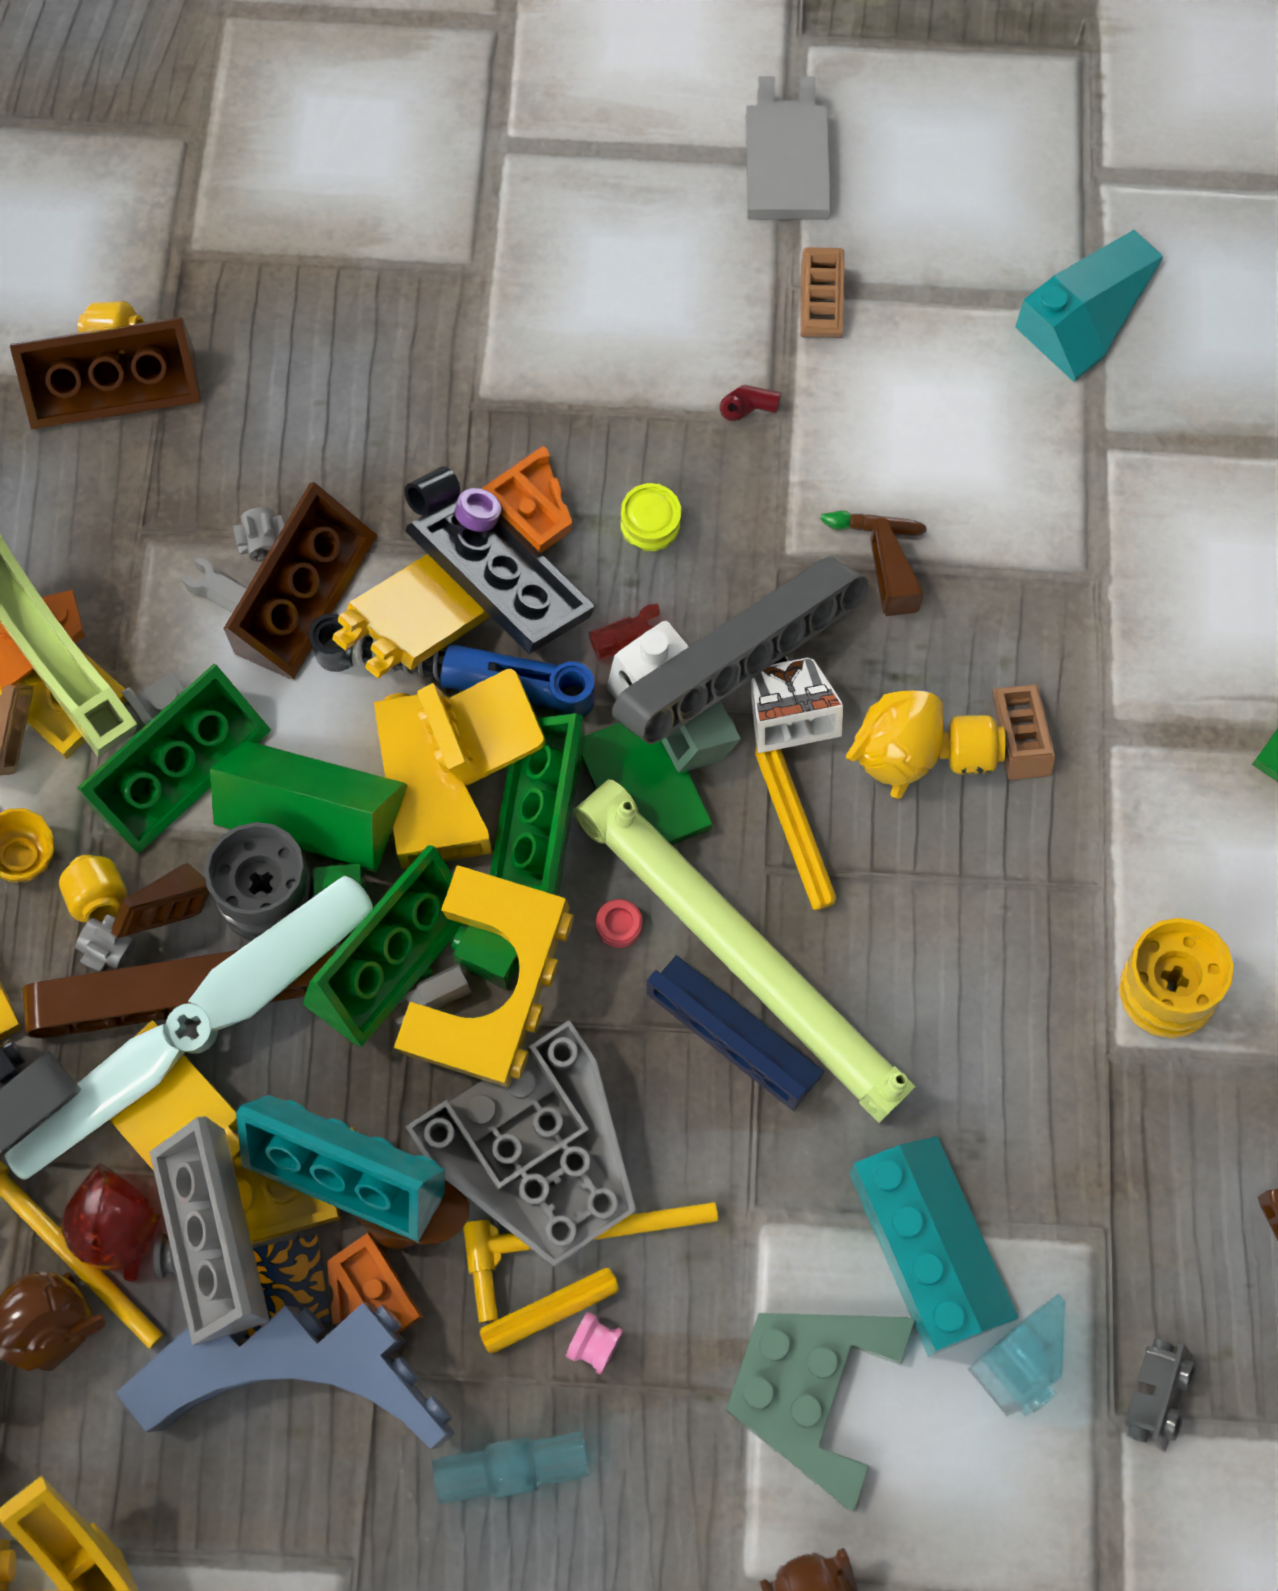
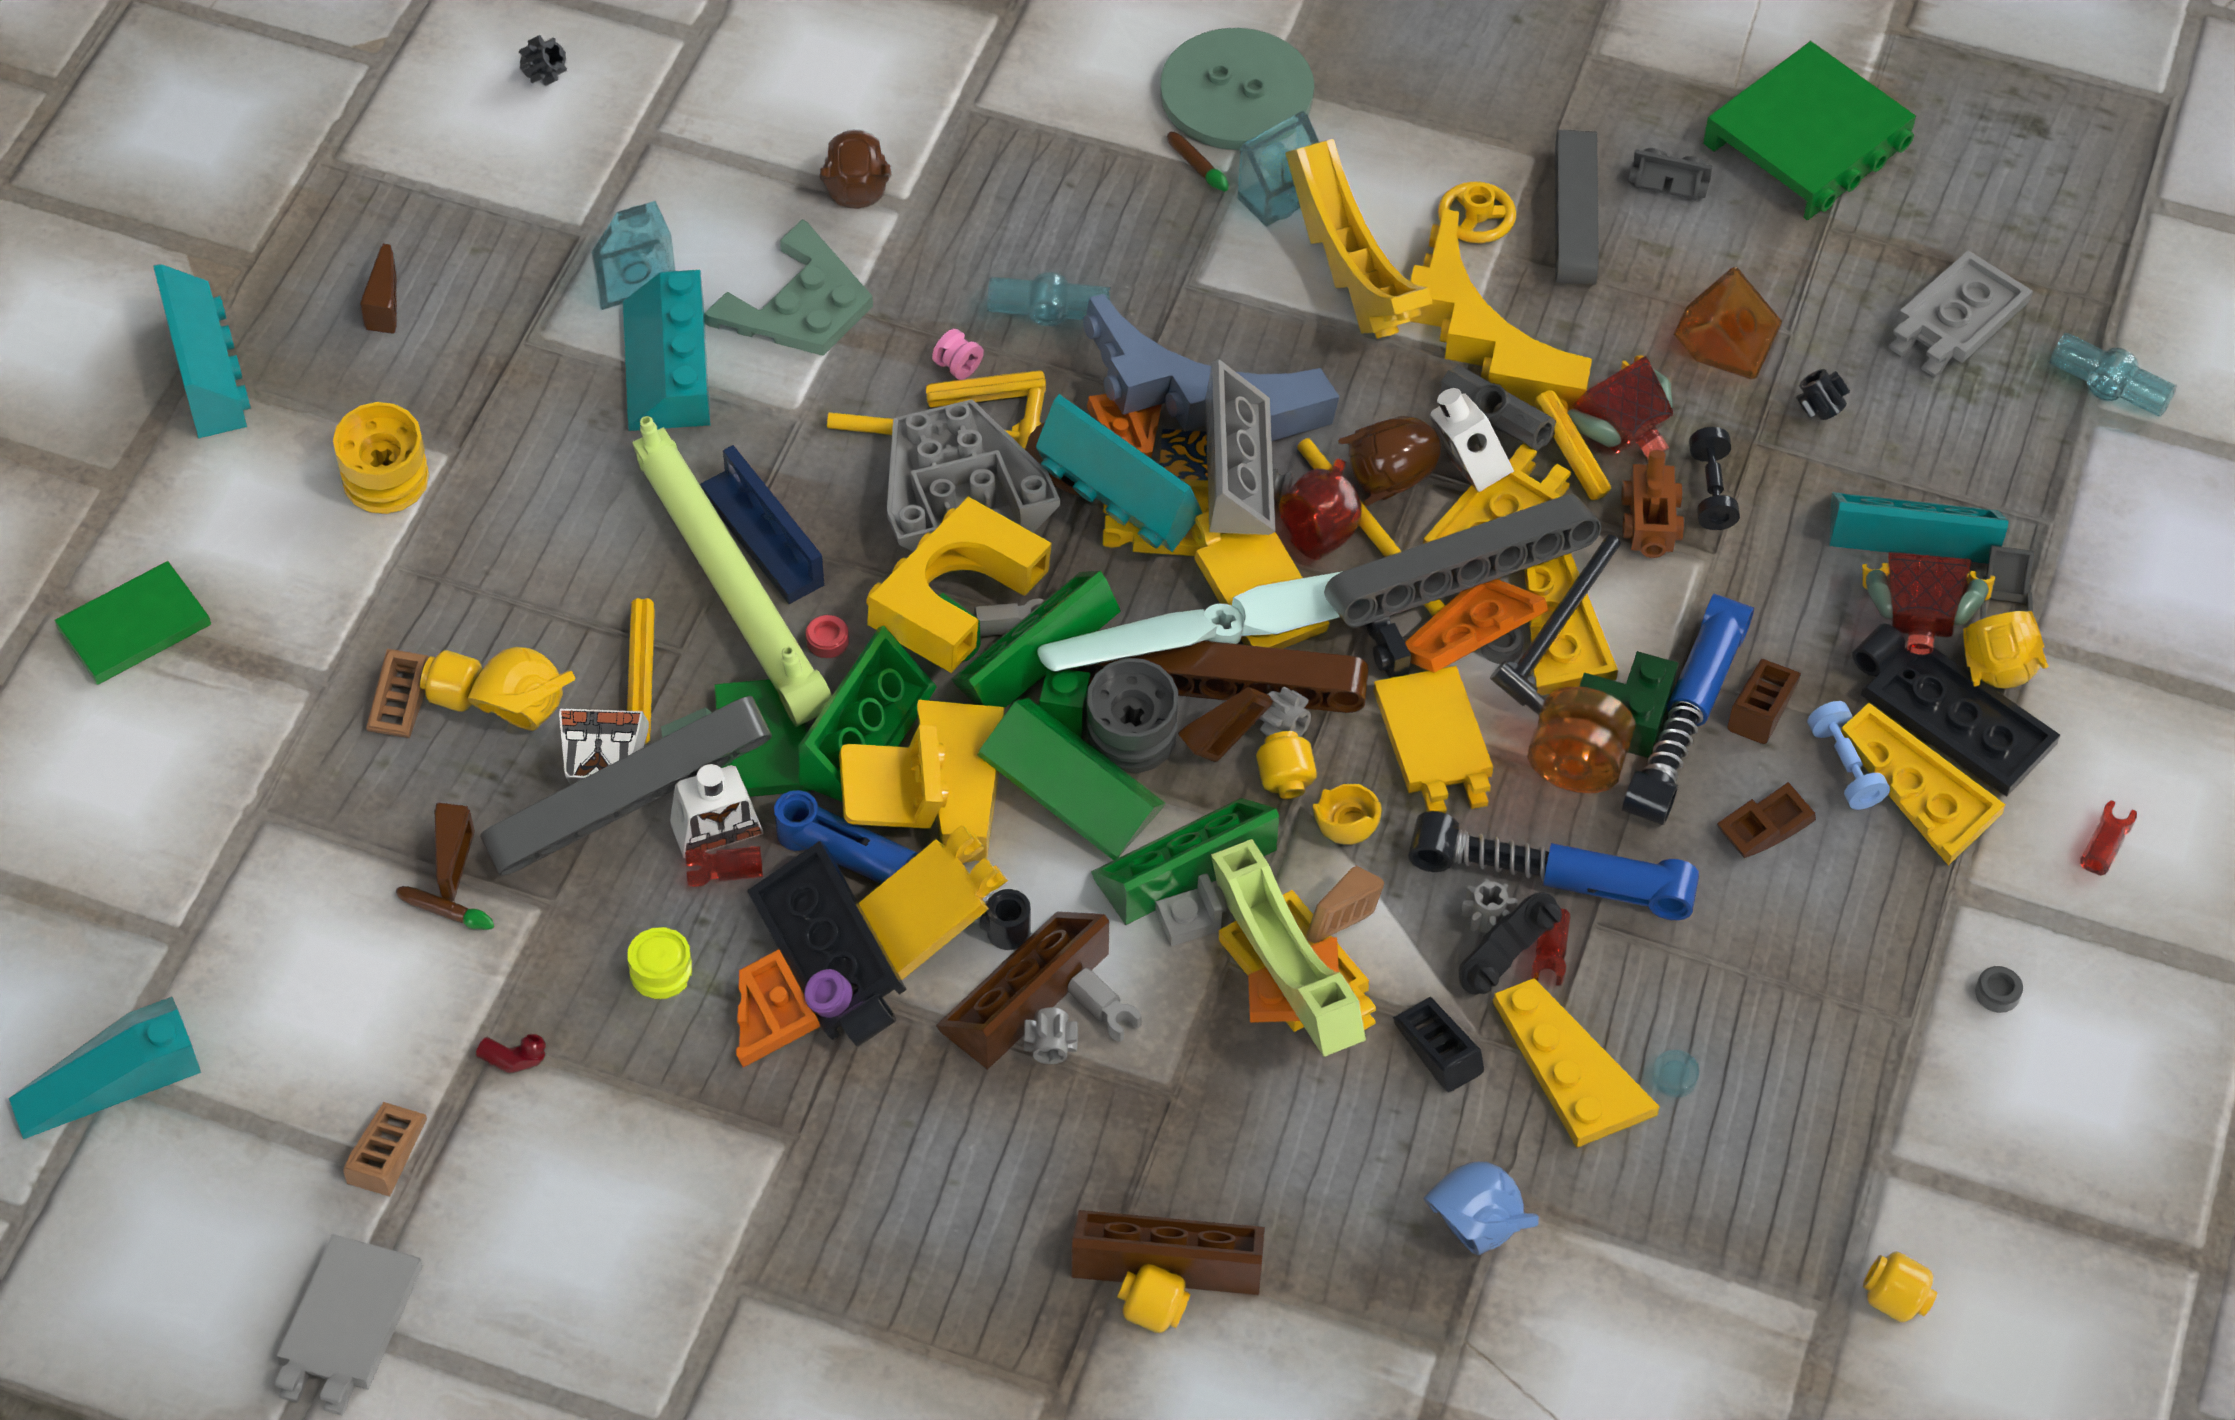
camera: 165 degrees left, 15 degrees down
(1159, 1413) = (529, 237): dark grey hinge -> none

